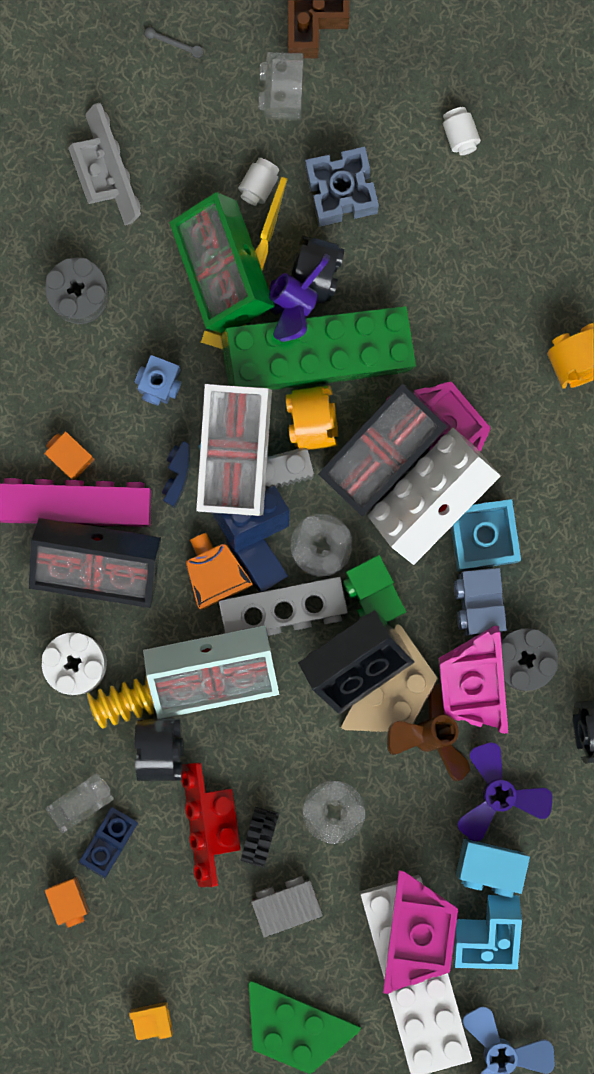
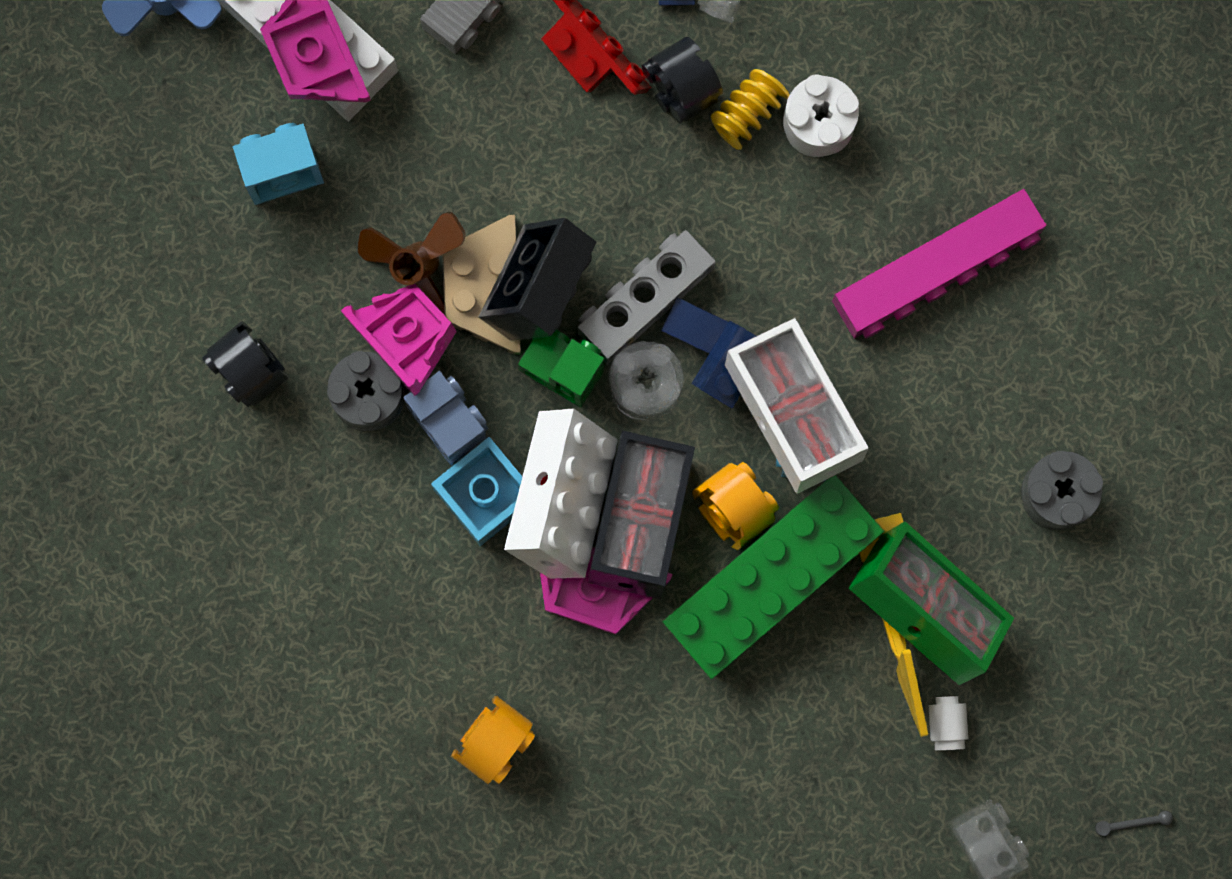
camera: 145 degrees right, 5 degrees down
(68, 455) = (960, 319): orange brick -> none
(94, 562) = (865, 223): brick -> none
(101, 167) = (1121, 636): light grey bracket -> none
(158, 369) = (915, 461): medium blue brick -> none
(179, 464) = (840, 375): dark blue slope -> none
(210, 672) = (679, 185): brick -> none
(214, 572) = (737, 290): orange torso -> none
(259, 837) = (529, 57): black tyre -> none
(288, 468) = (730, 437): light grey brick -> none
(295, 302) = (827, 607): dark purple piece -> none
(310, 254) = (831, 662): black brick -> none
(332, 829) = (461, 109): clear brick -> none
(352, 172) = (883, 769): sand blue brick -> none
(489, 764) = (276, 254): dark purple piece -> none
(492, 941) = (239, 91): medium azure brick -> none

